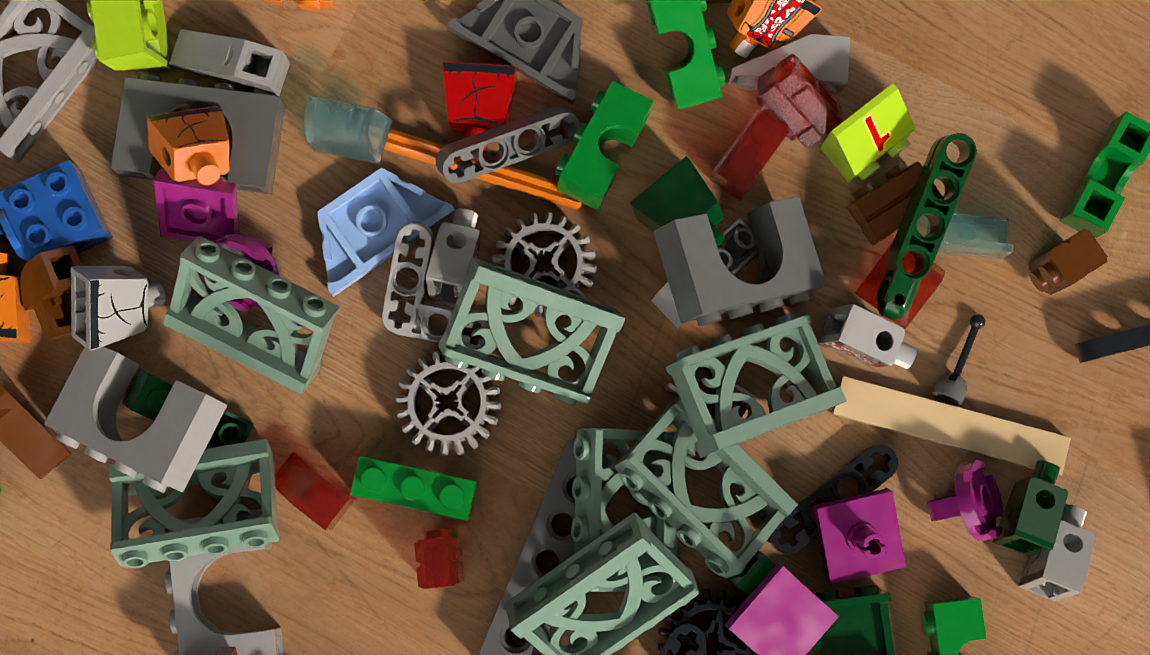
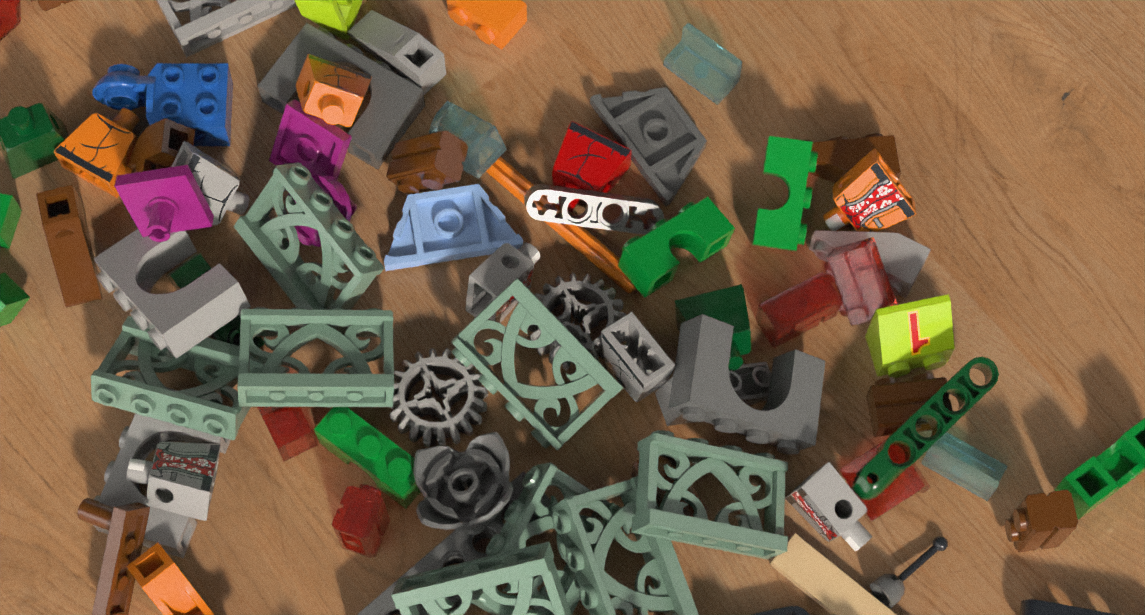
camera: 25 degrees right, 15 degrees down
(87, 344) = (164, 201): none -> magenta tile
(245, 601) = (179, 477): none -> light grey torso
(294, 477) = (295, 329): none -> sand green fence
(322, 172) = (427, 162): none -> reddish brown brick
(419, 310) = (451, 312): light grey beam -> none
(496, 482) = (446, 474): none -> dark grey brick
(623, 282) = (641, 363): none -> light grey torso

